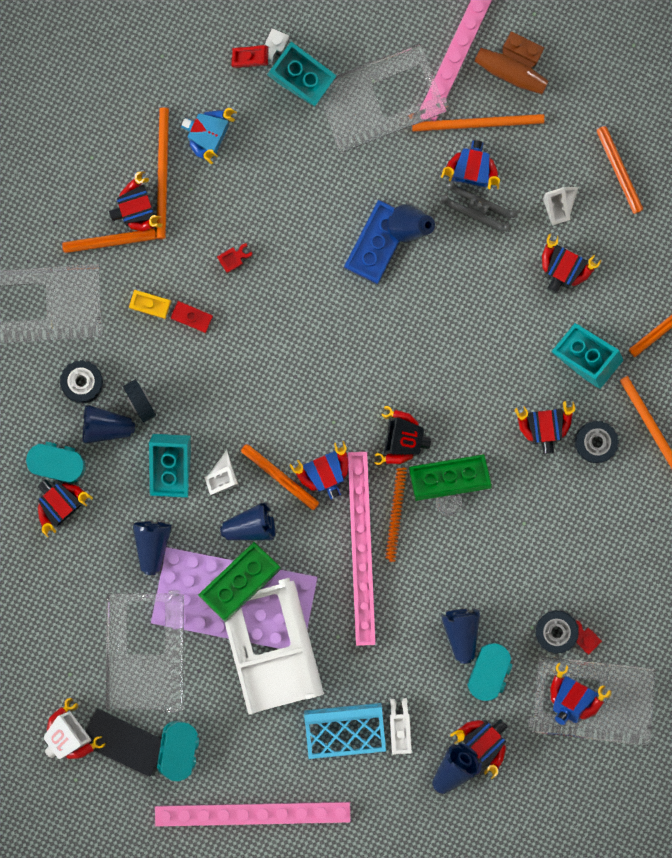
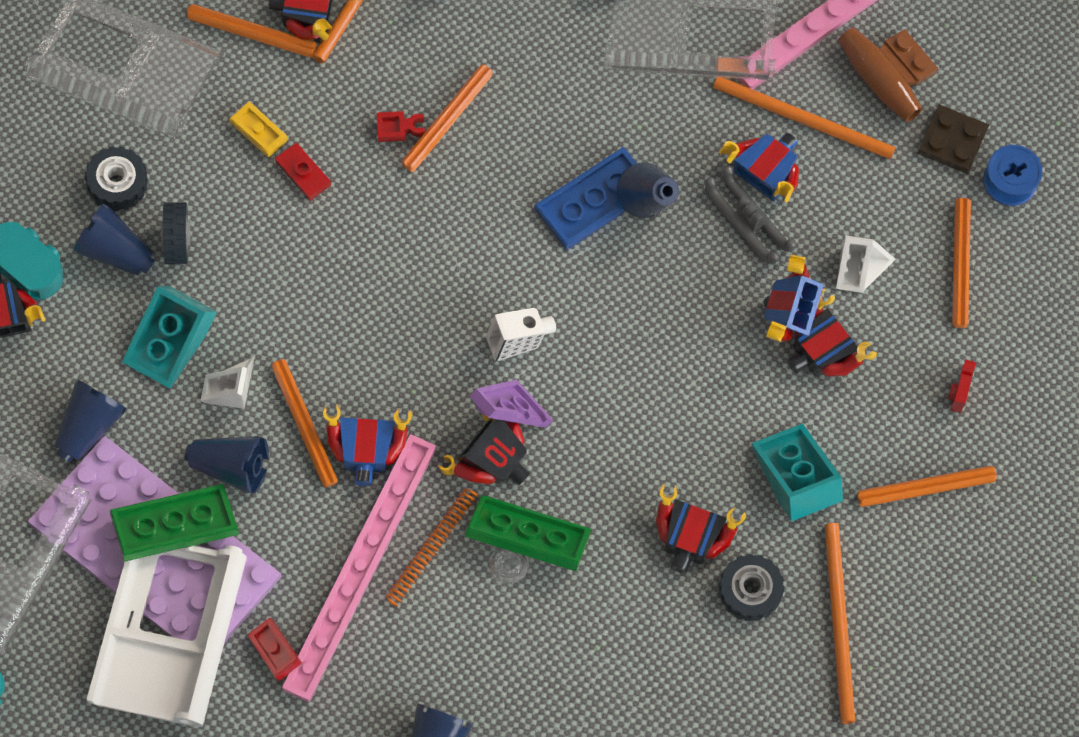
camera: 20 degrees right, 15 degrees down
(260, 236) = (447, 118): none -> orange axle
(338, 624) = (274, 649): none -> red plate
(374, 359) = (517, 332): none -> white torso
(399, 404) = (510, 403): none -> medium lavender wing
(535, 255) = (792, 302): none -> torso
(575, 90) = (953, 139): none -> dark brown plate
(617, 89) = (1012, 161): none -> blue piece
(659, 254) = (959, 392): none -> red plate

